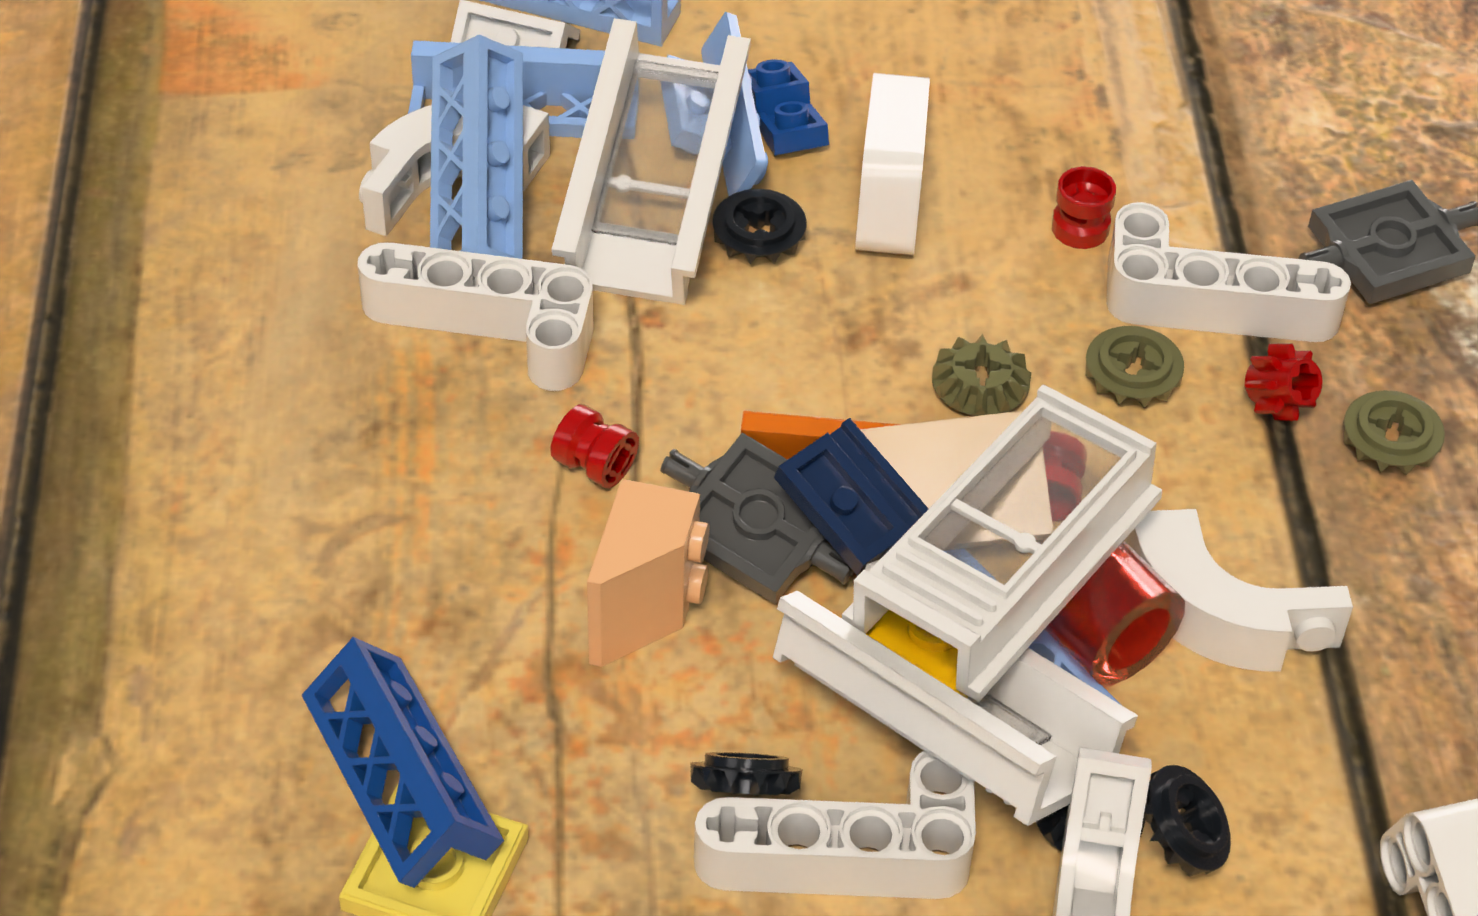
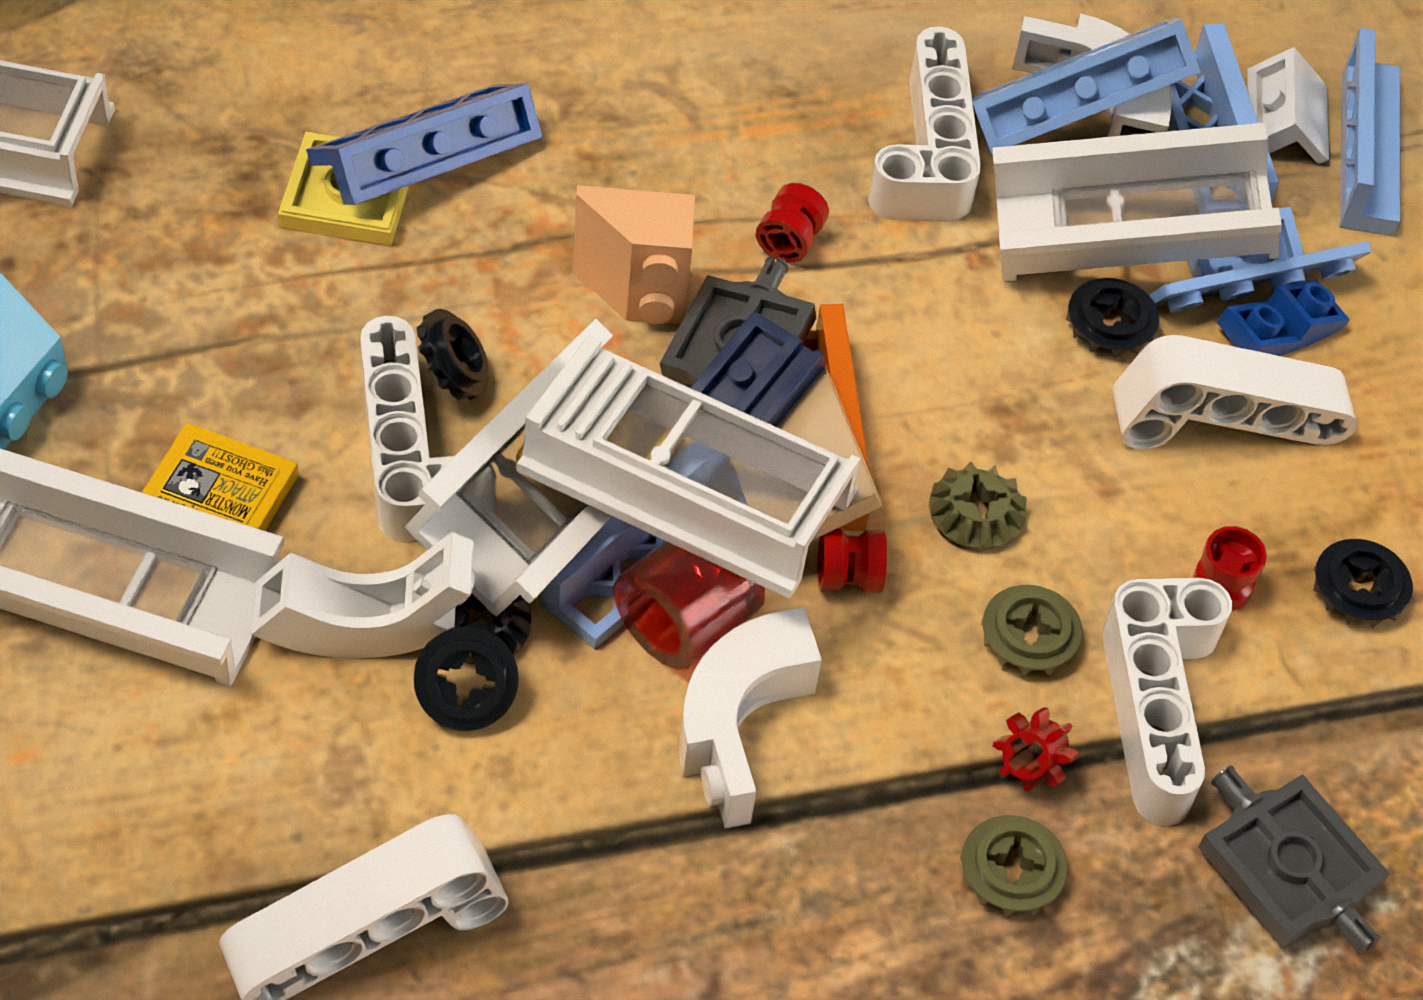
camera: 75 degrees right, 5 degrees up
(1100, 114) = (1359, 561): none -> black gear

